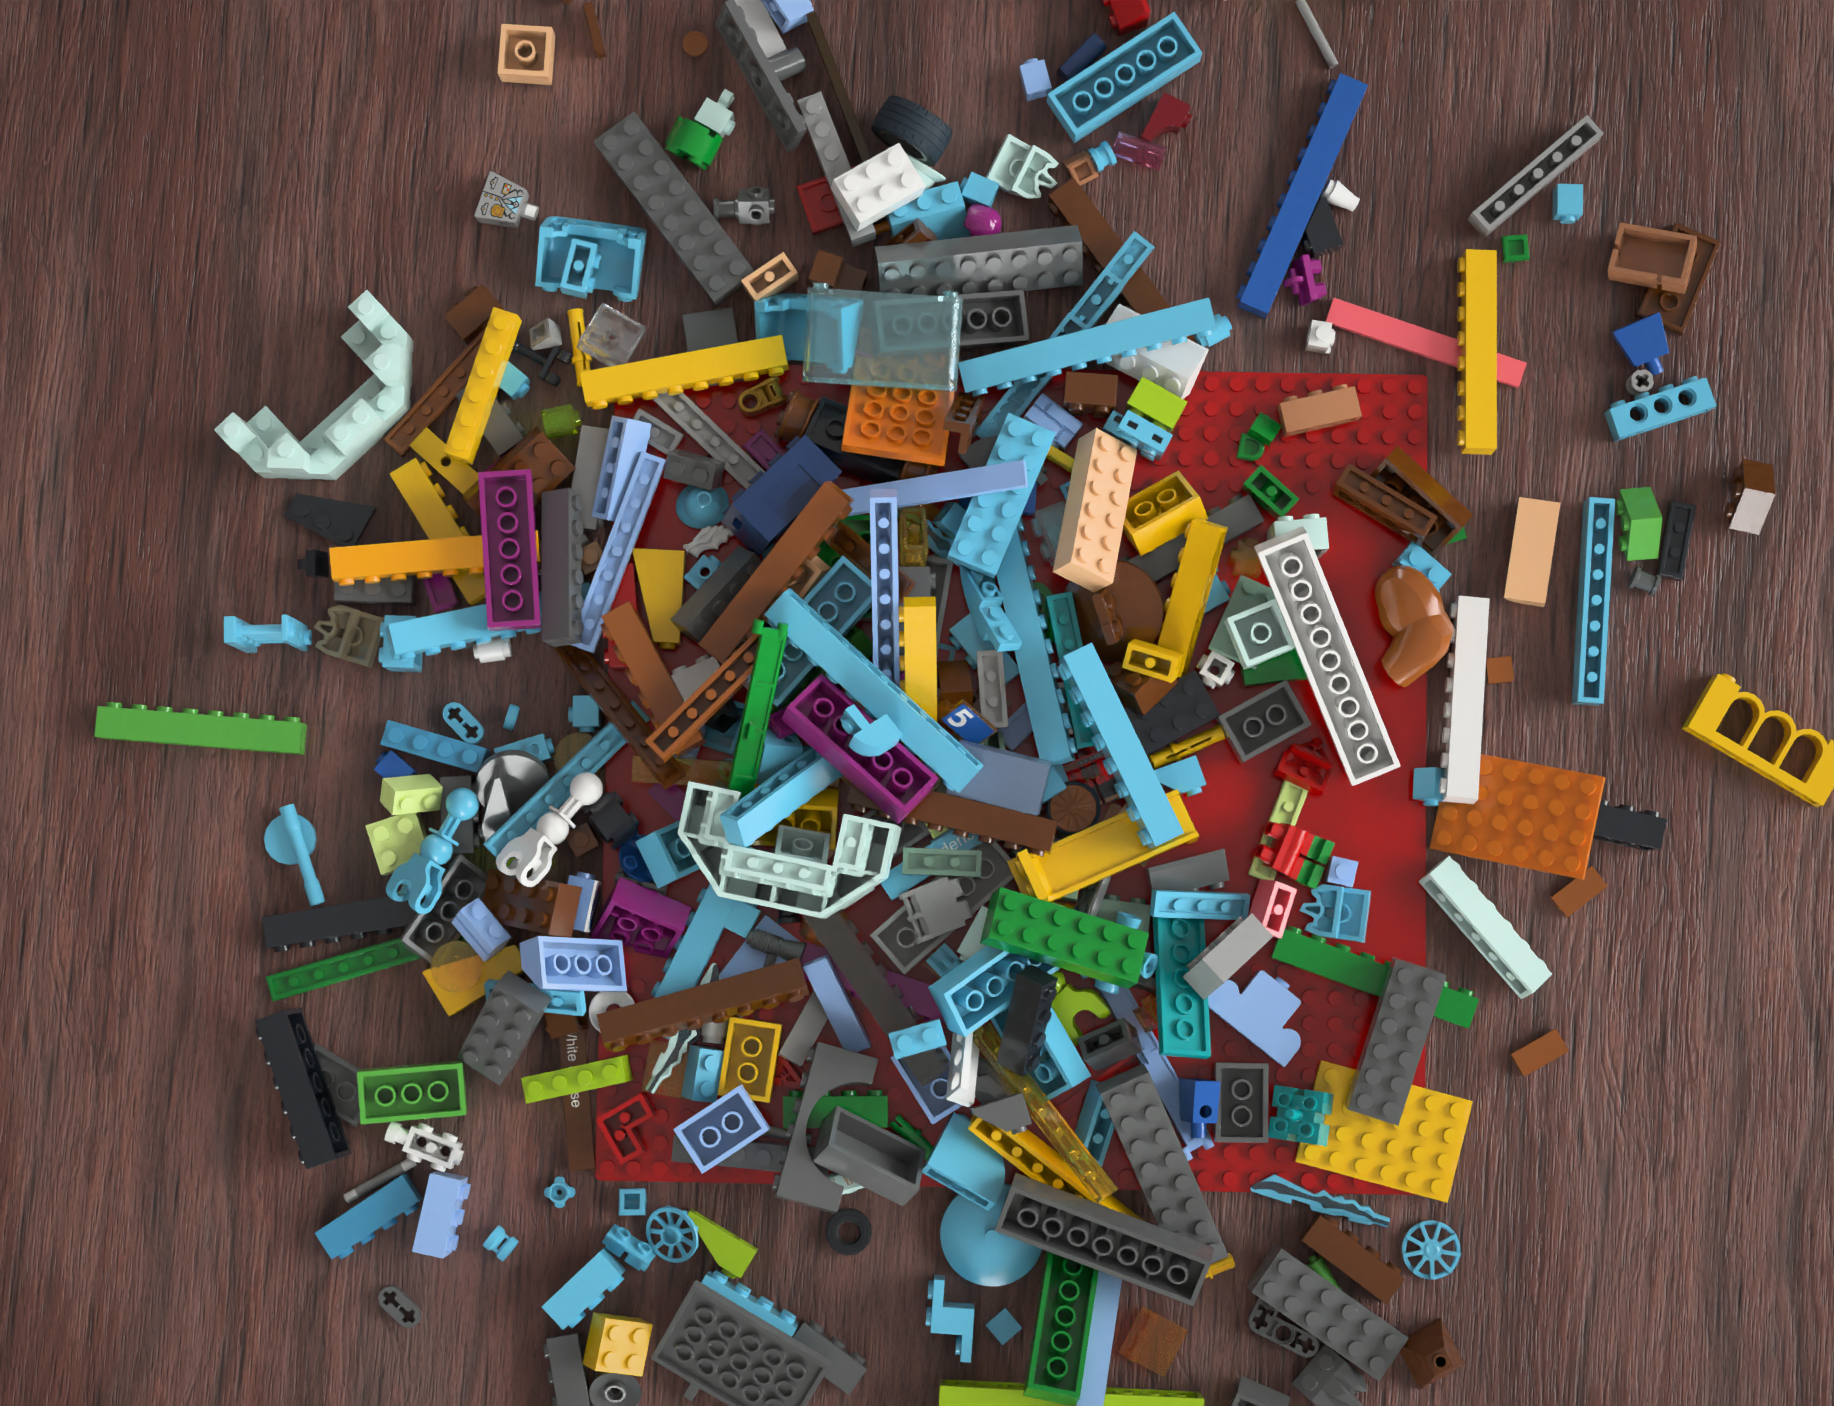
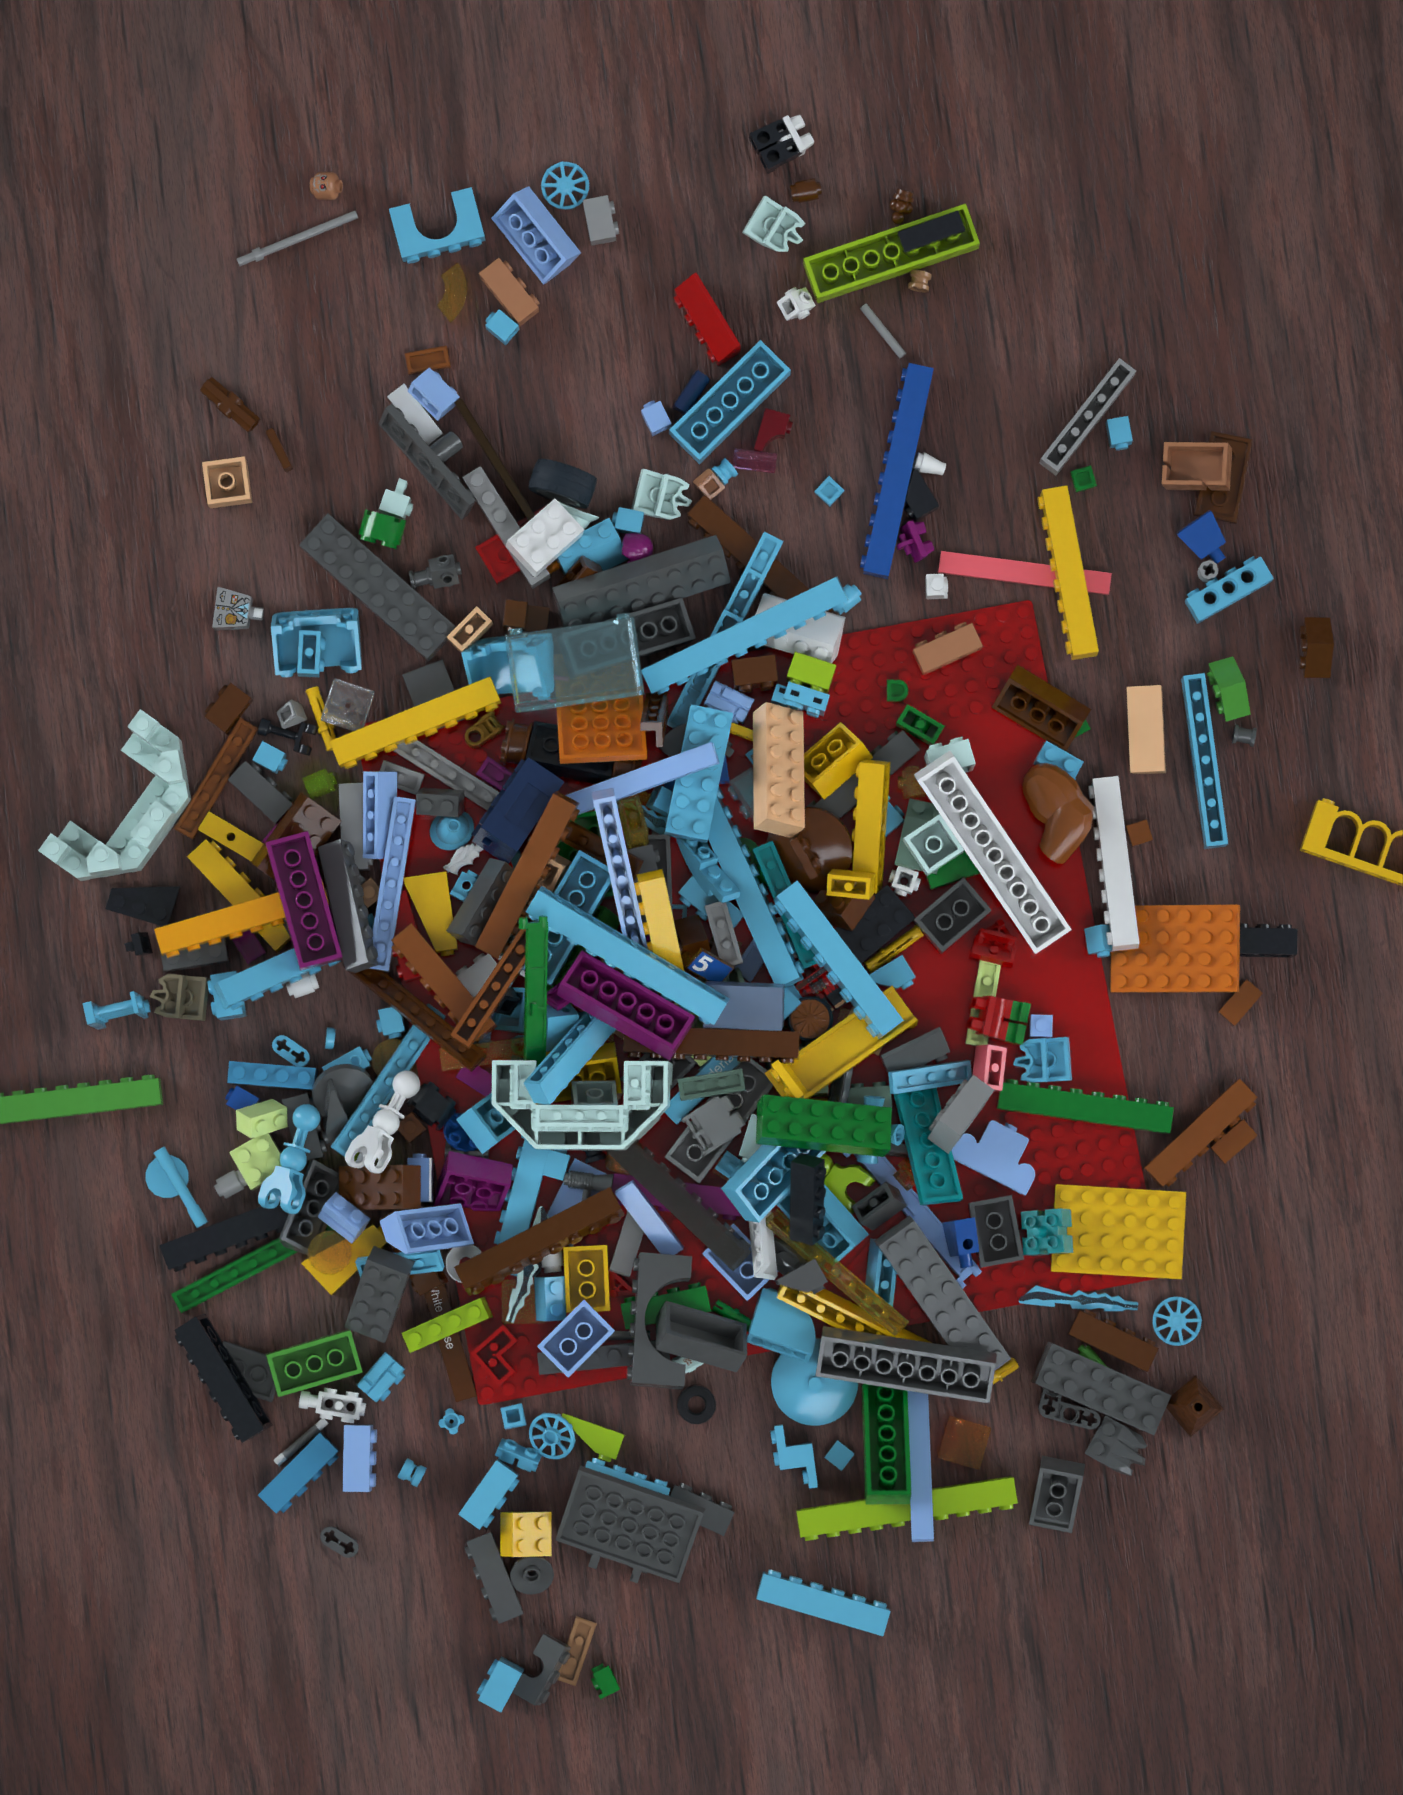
camera: 15 degrees left, 0 degrees up
(359, 863) = (230, 1184): none -> light grey brick
(482, 385) = (250, 768): yellow brick -> none
(488, 1124) = (381, 1377): none -> medium azure brick
(695, 43) = (365, 443): dark orange piece -> none
(869, 738) = (633, 995): medium azure brick -> none
(917, 1038) = (721, 1232): medium azure brick -> none
(1217, 204) = (829, 491): none -> medium azure tile
(1264, 429) = (905, 672): green tile -> none
(1384, 504) = (1016, 716): reddish brown fence -> none
(1395, 1041) = (1111, 1155): dark grey brick -> none
(1485, 927) = (1168, 1047): light aqua brick -> none
(1503, 1035) = (1200, 1133): none -> dark orange brick
(1676, 540) = (1264, 695): black tile -> none

